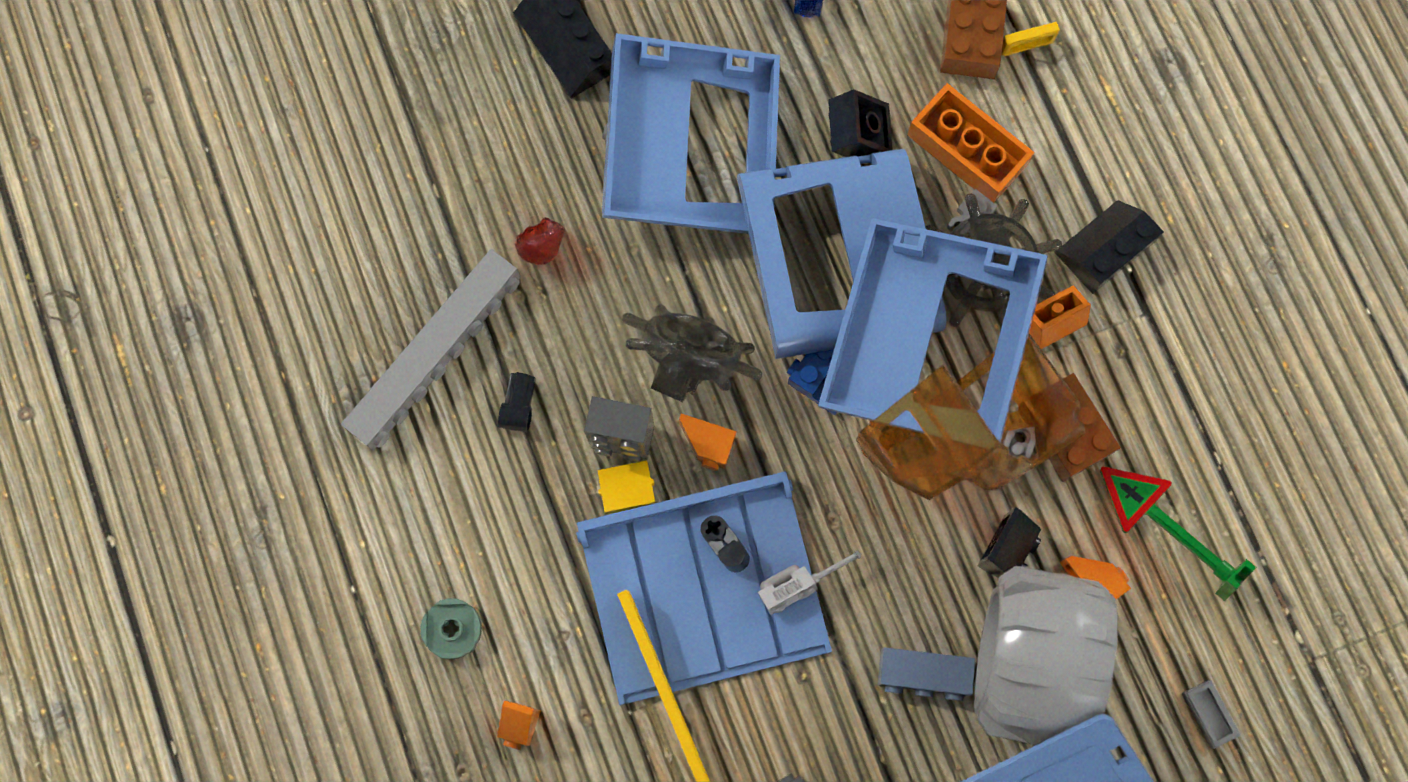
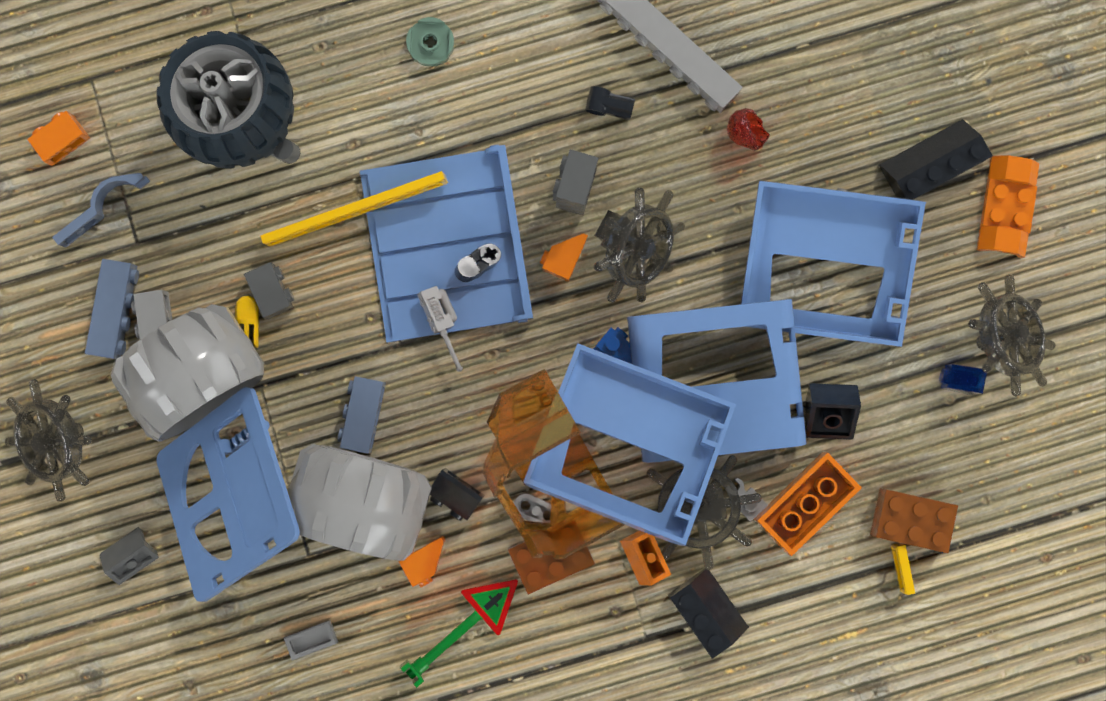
camera: 95 degrees right, 10 degrees up
(517, 724) = (351, 89): orange slope -> none
(626, 487) = (532, 188): yellow piece -> none

